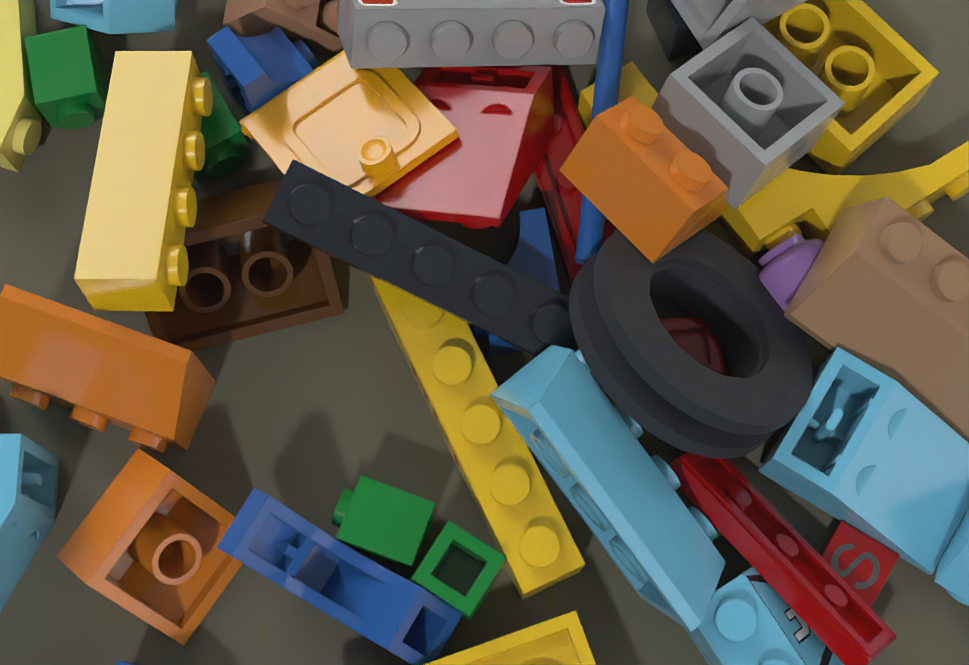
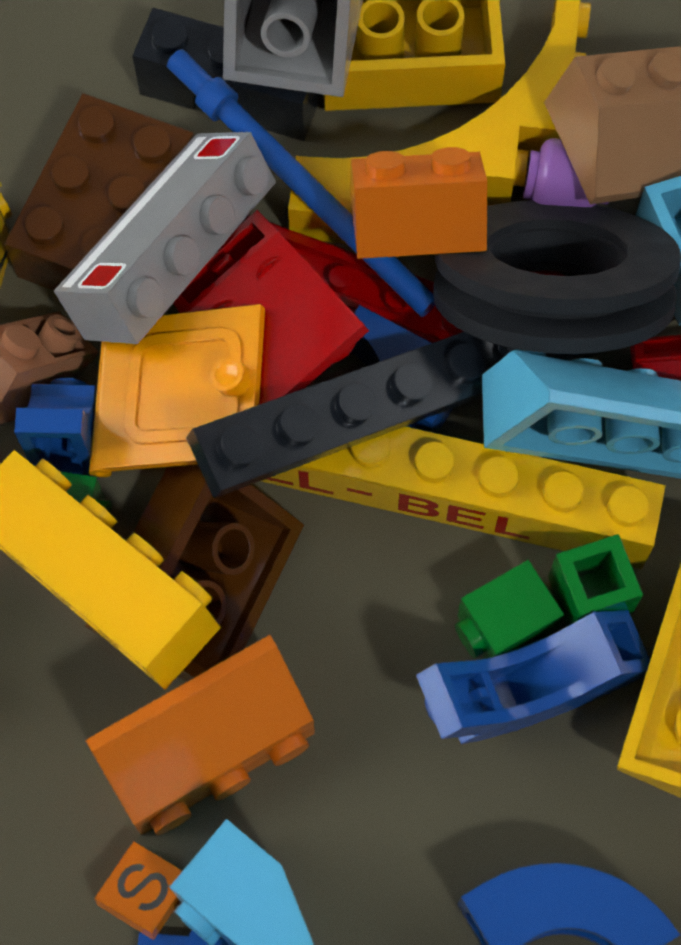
camera: 50 degrees left, 5 degrees down
(154, 547) = (382, 804): orange slope -> none
(746, 108) = (418, 94): light grey brick -> none

